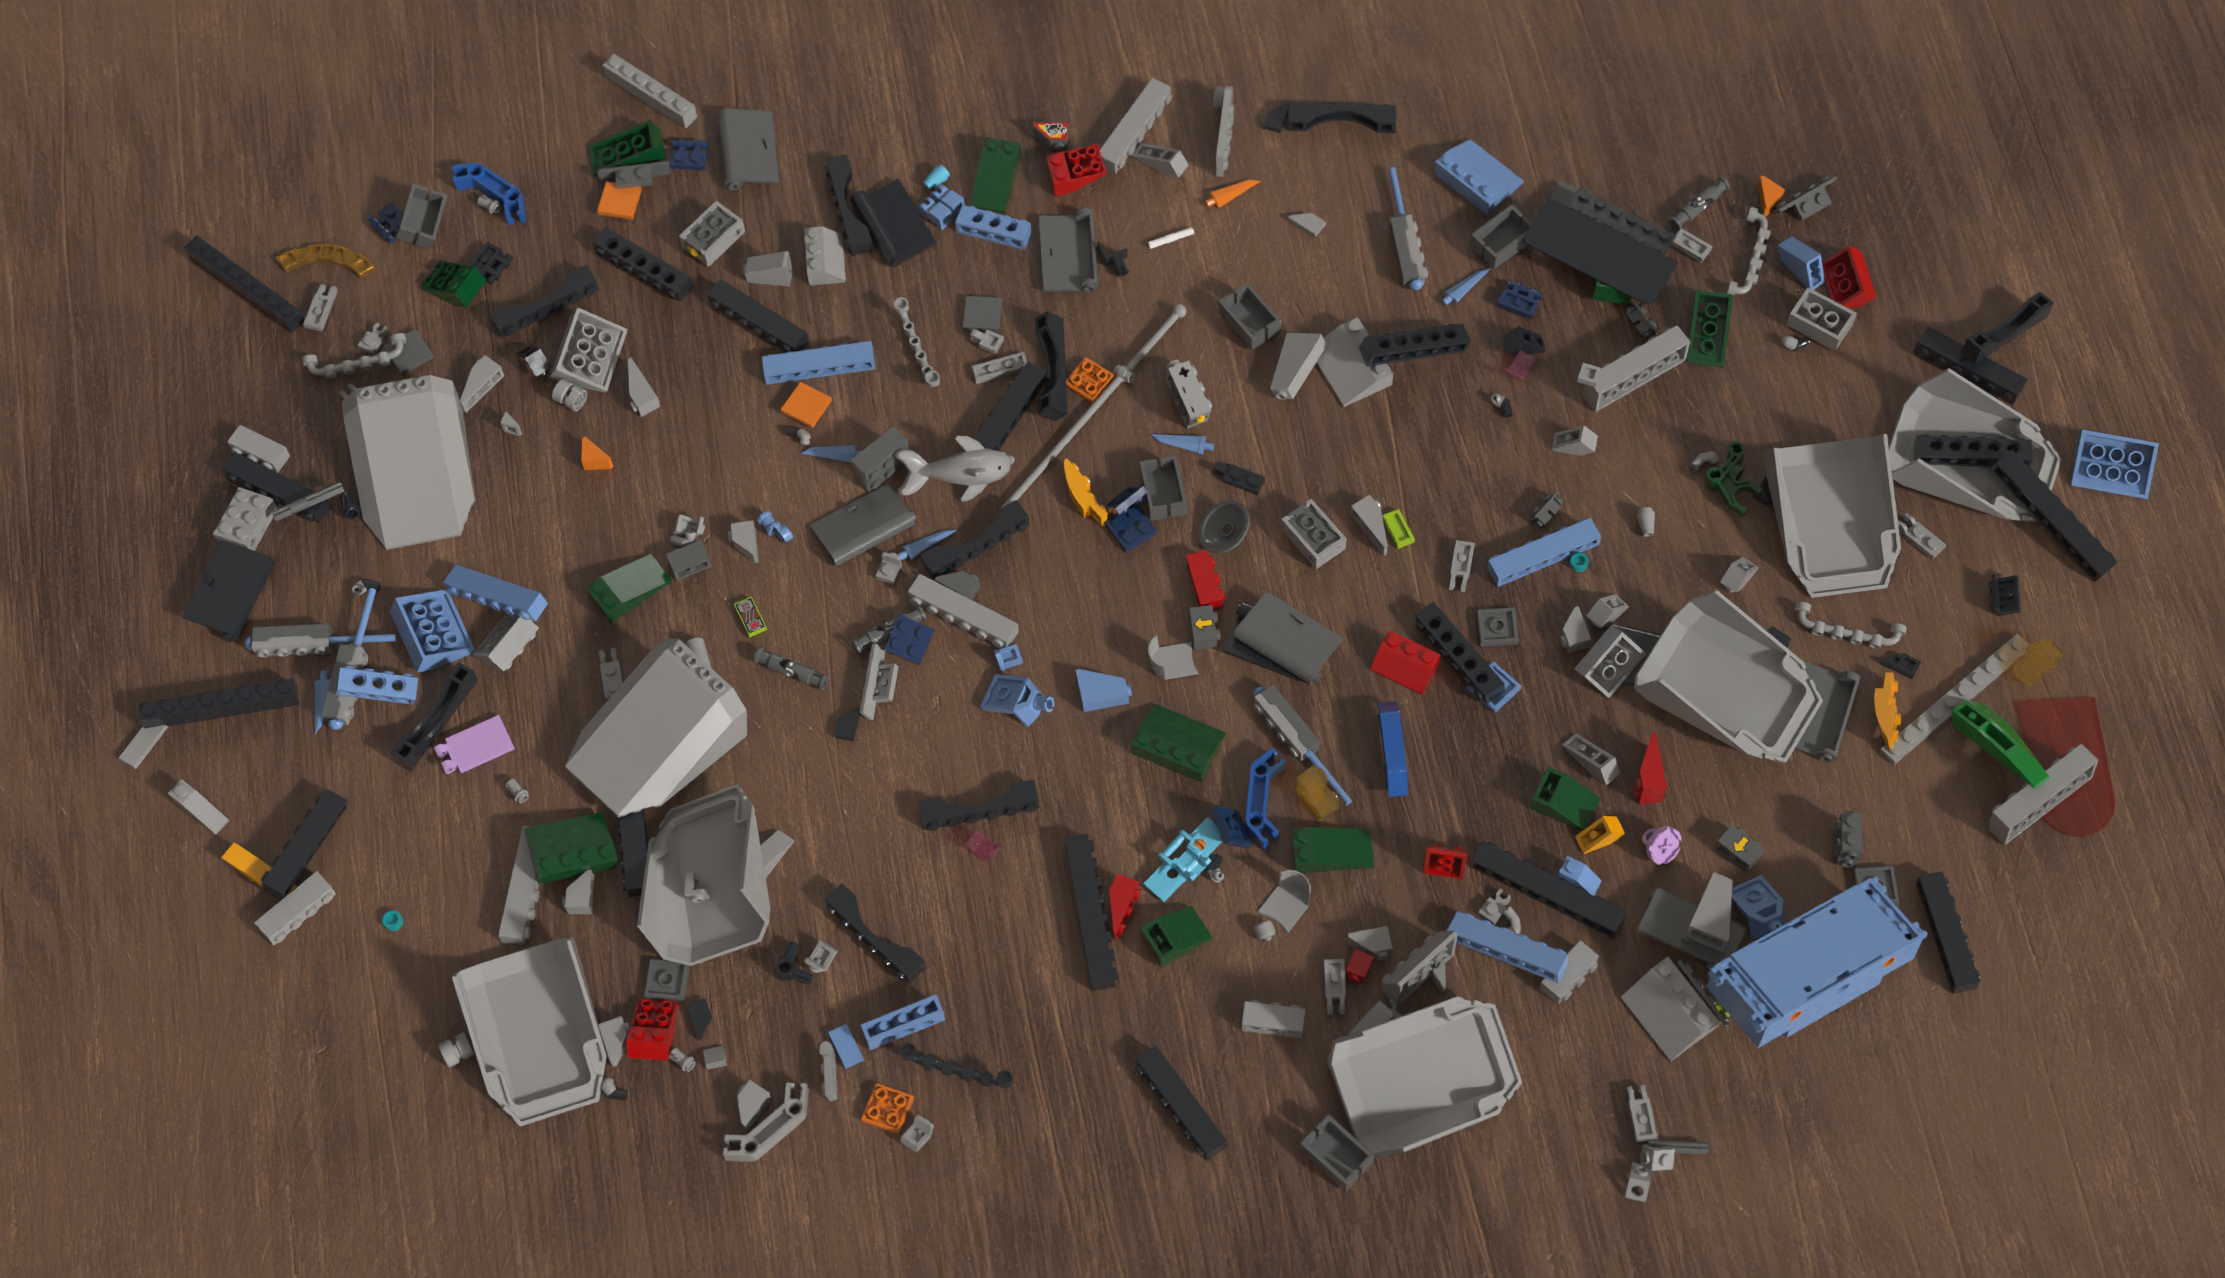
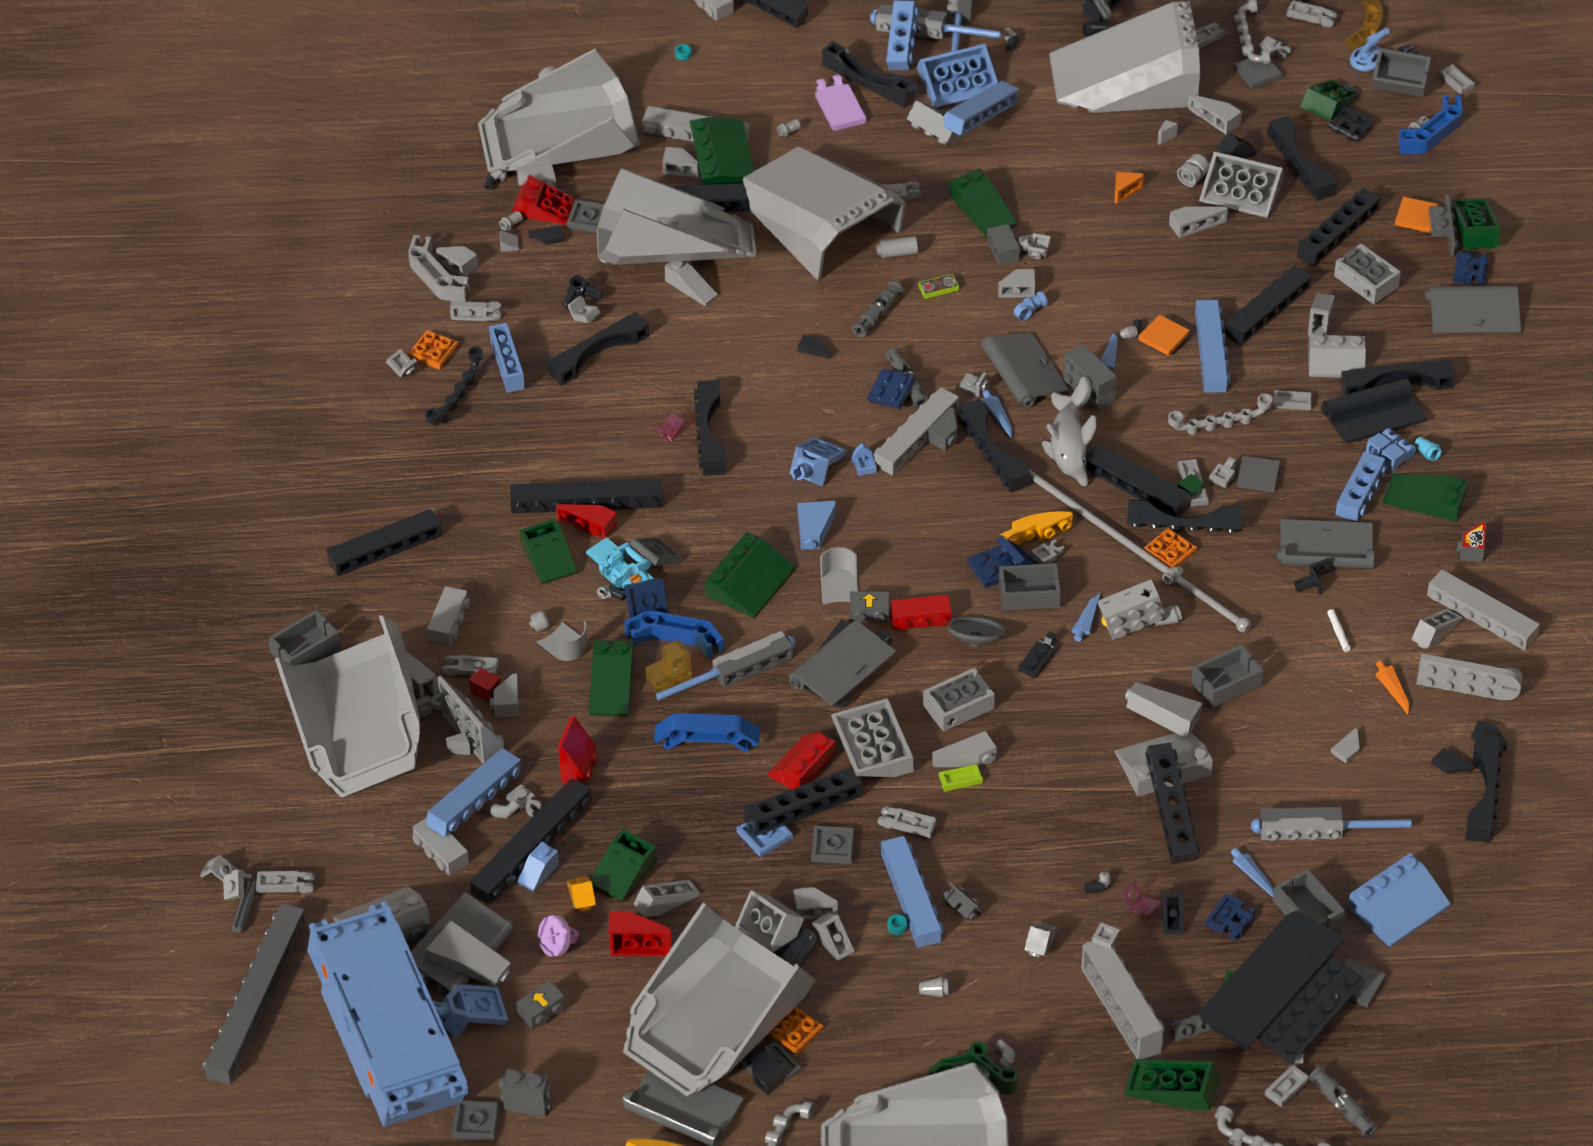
camera: 95 degrees right, 15 degrees down
(387, 249) = (1368, 52): none -> medium blue dish
(417, 175) = (1456, 79): none -> light grey tile
(649, 91) = (1546, 239): light grey brick -> none
(846, 1046) = (509, 319): medium blue tile -> none
(879, 682) = (851, 365): light grey bracket -> none
(881, 292) = (1292, 400): none -> light grey tile
(1010, 364) = (1191, 485): none -> dark green tile
(1075, 168) = (1425, 549): red slope -> none
(1112, 483) = (1046, 554): none -> light grey plate
(1160, 830) = (656, 551): none -> dark grey tile
(1313, 146) = (1450, 762): none -> black tile
(1377, 598) = (874, 740): none -> light grey slope
(1738, 574) = (857, 1058): light grey slope -> none
(1782, 1111) = (254, 994): none -> dark grey brick

